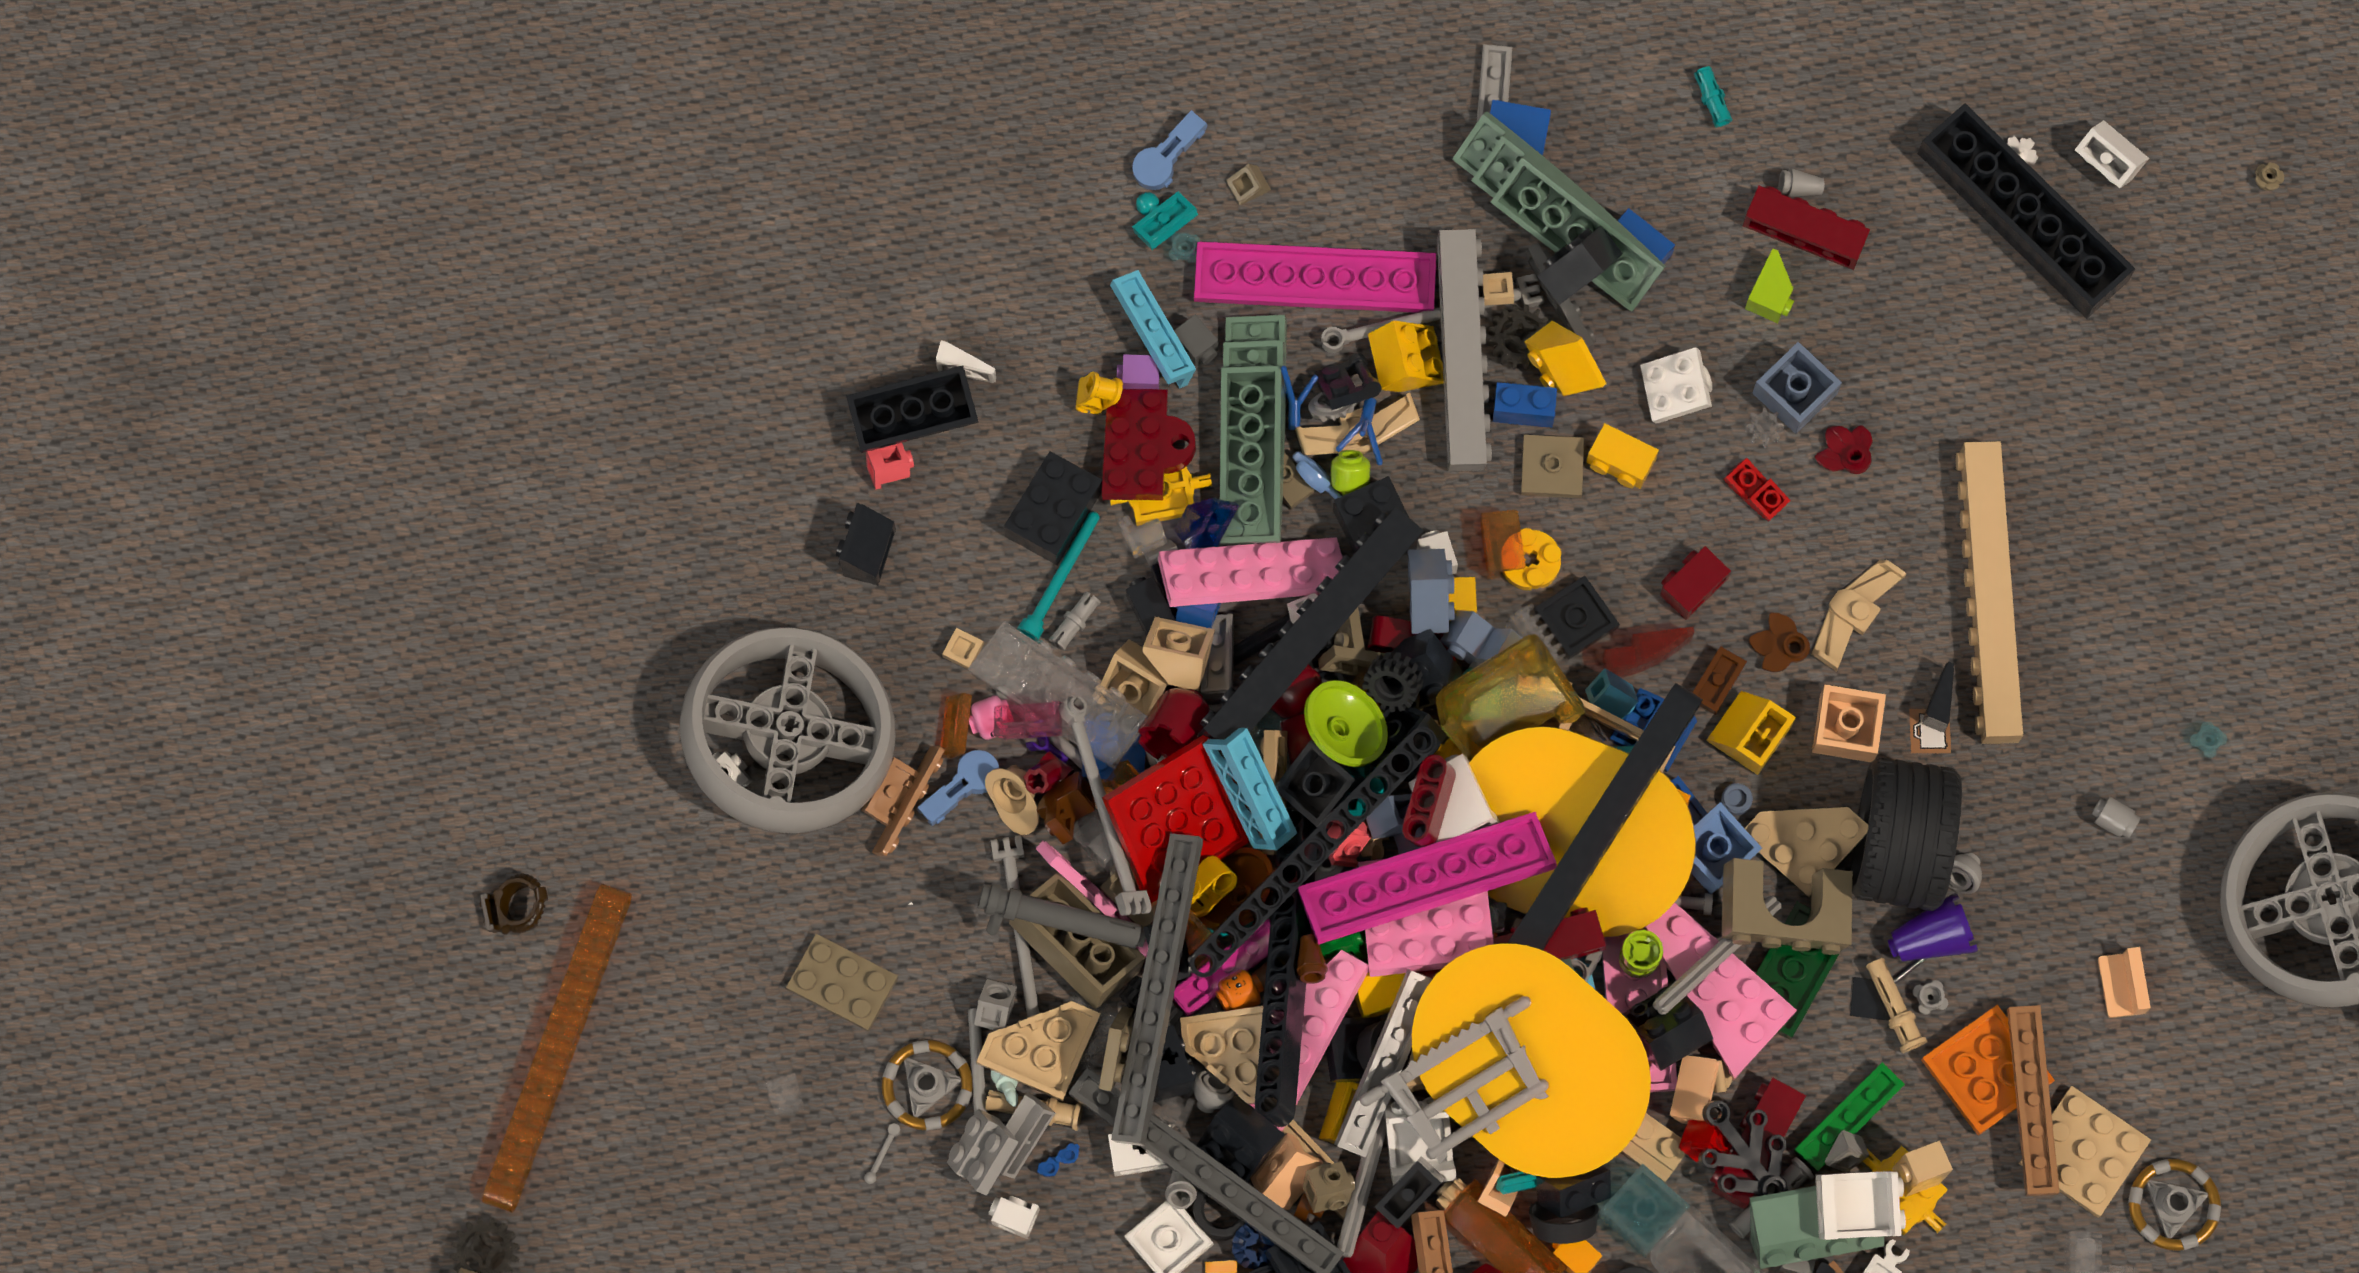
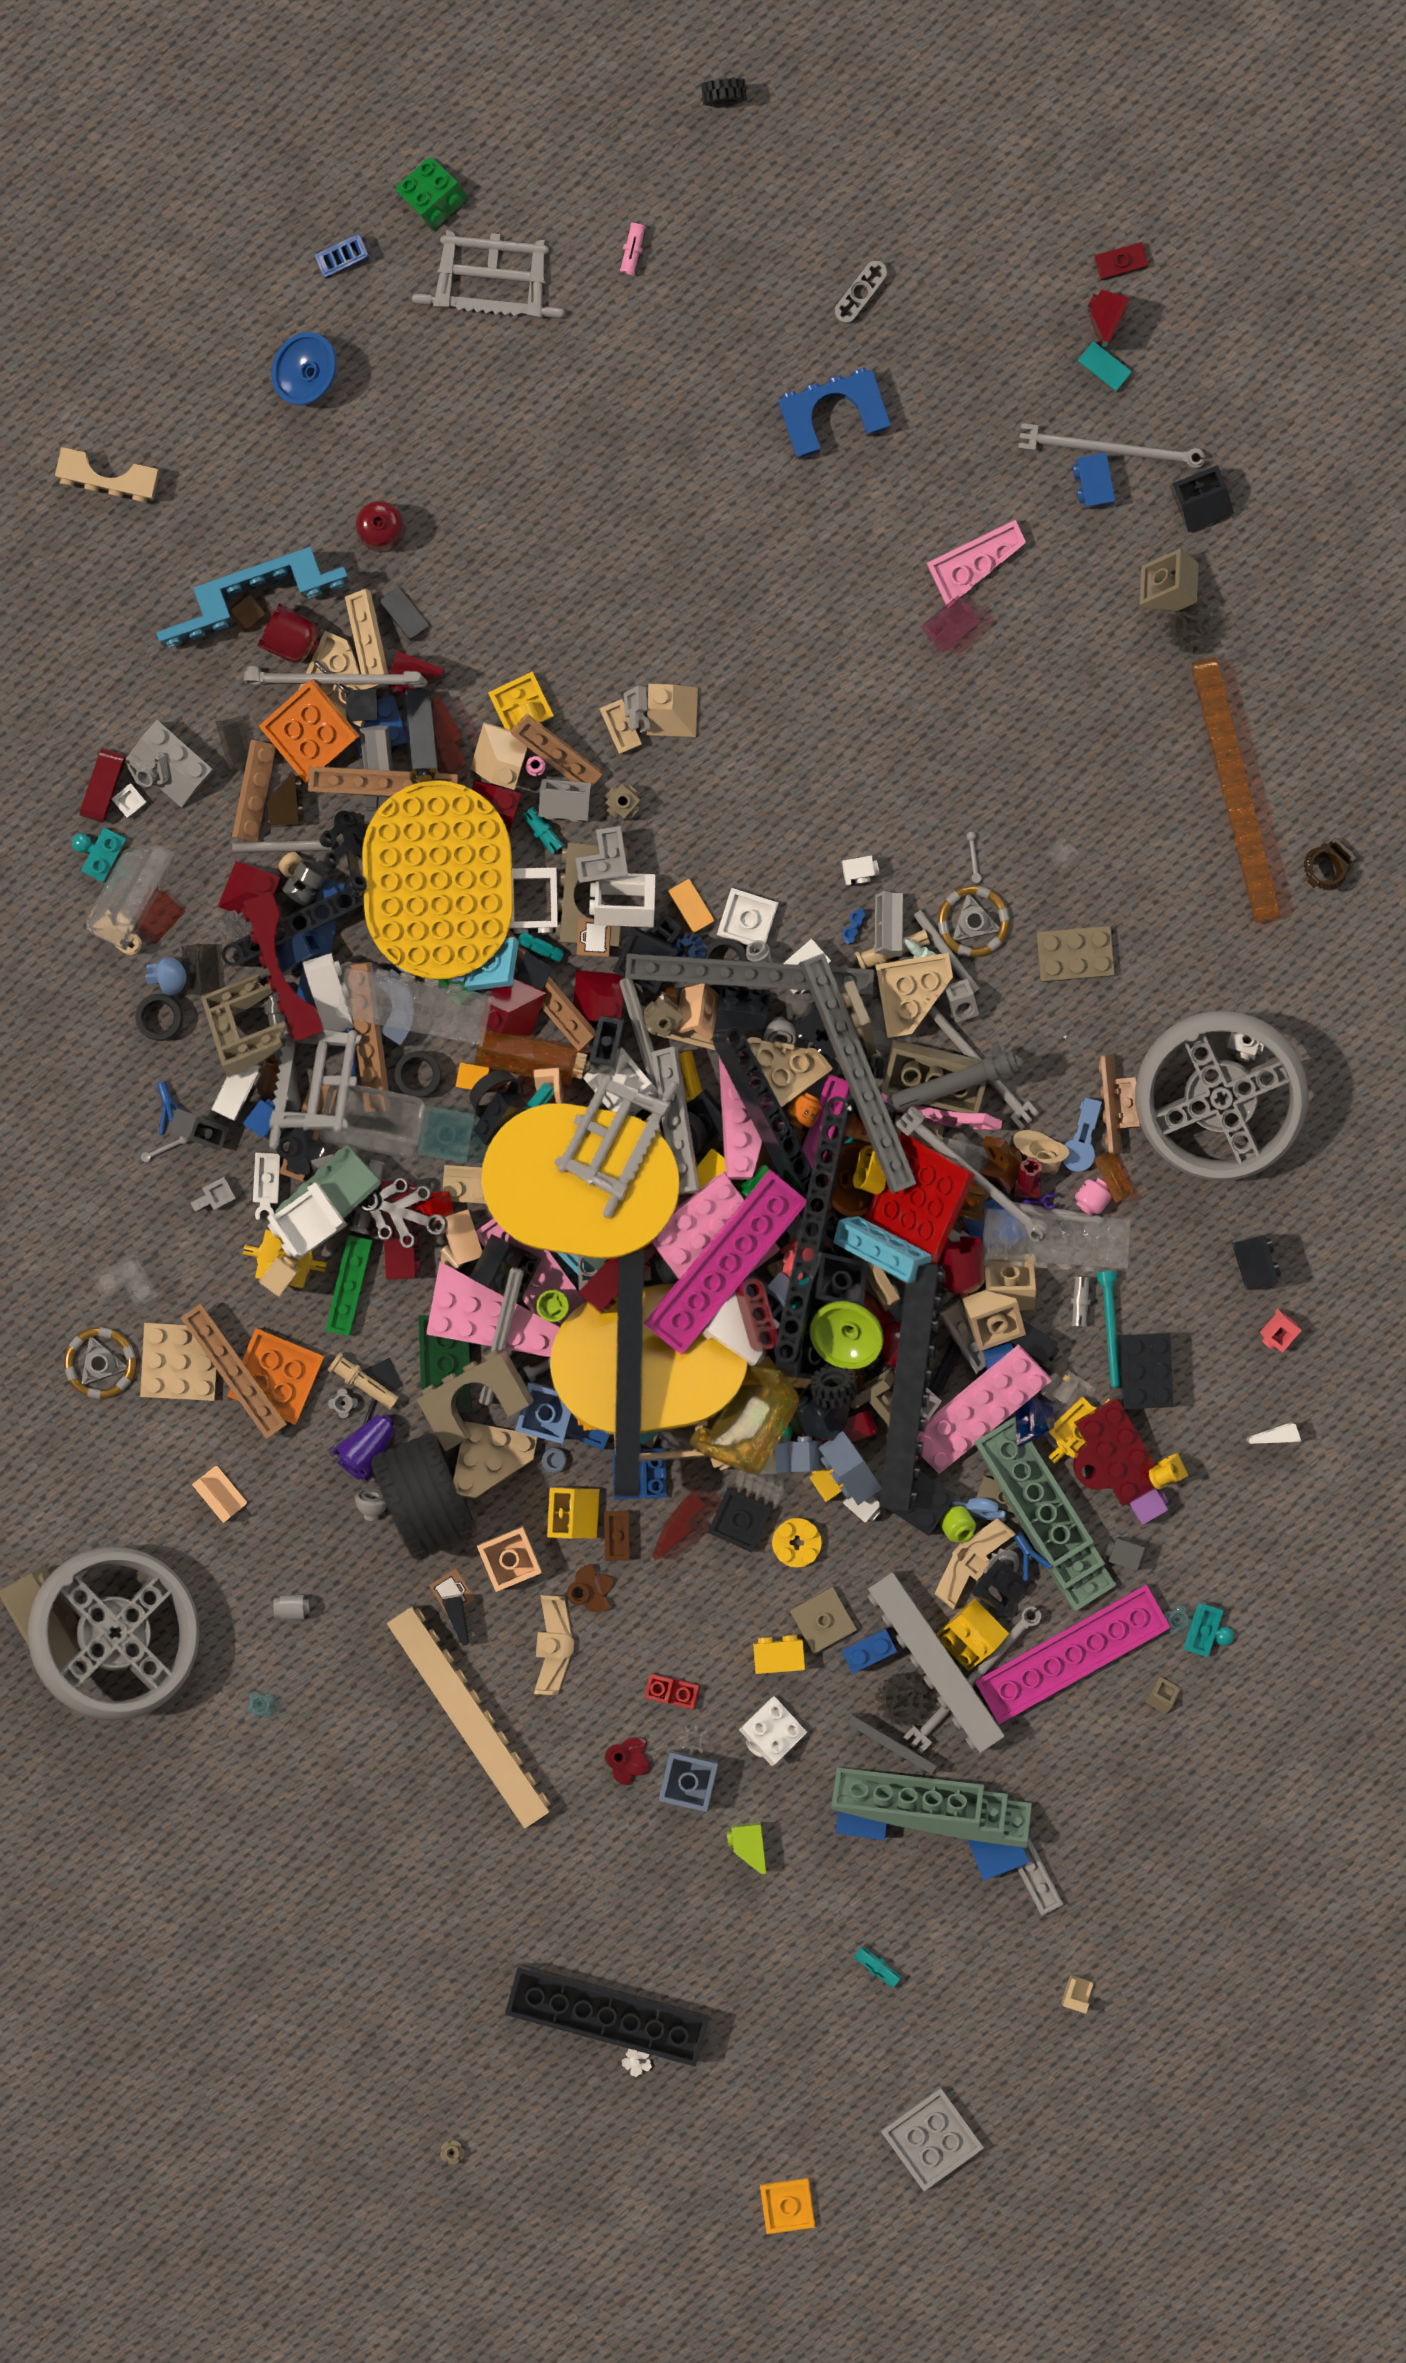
camera: 145 degrees right, 15 degrees up
(912, 409) = (1286, 1376): black slope -> none
(962, 648) = (1143, 1233): tan plate -> none
(982, 1151) = (906, 896): light grey plate -> none
(1027, 720) = (1064, 1205): clear pink hinge -> none
(1153, 328) = (1159, 1542): medium azure fence -> none
(1154, 165) = (1236, 1663): medium blue piece -> none
(1311, 962) = (766, 1154): reddish brown cone -> none
(1364, 425) = (969, 1565): blue plant -> none
(1498, 288) = (939, 1723): tan plate -> none
(1501, 542) = (822, 1540): clear orange panel -> none
(1563, 360) = (861, 1695): yellow slope -> none
(1579, 263) = (891, 1772): black brick -> none
(1612, 694) = (681, 1476): dark azure brick -> none
(1694, 582) = (674, 1595): dark red brick -> none
(1798, 183) = (776, 1938): light grey cone -> none
(1806, 226) = (752, 1907): dark red brick -> none
(1847, 1152) = (336, 1260): light grey slope -> none
(2111, 154) = (571, 2096): white brick -> none

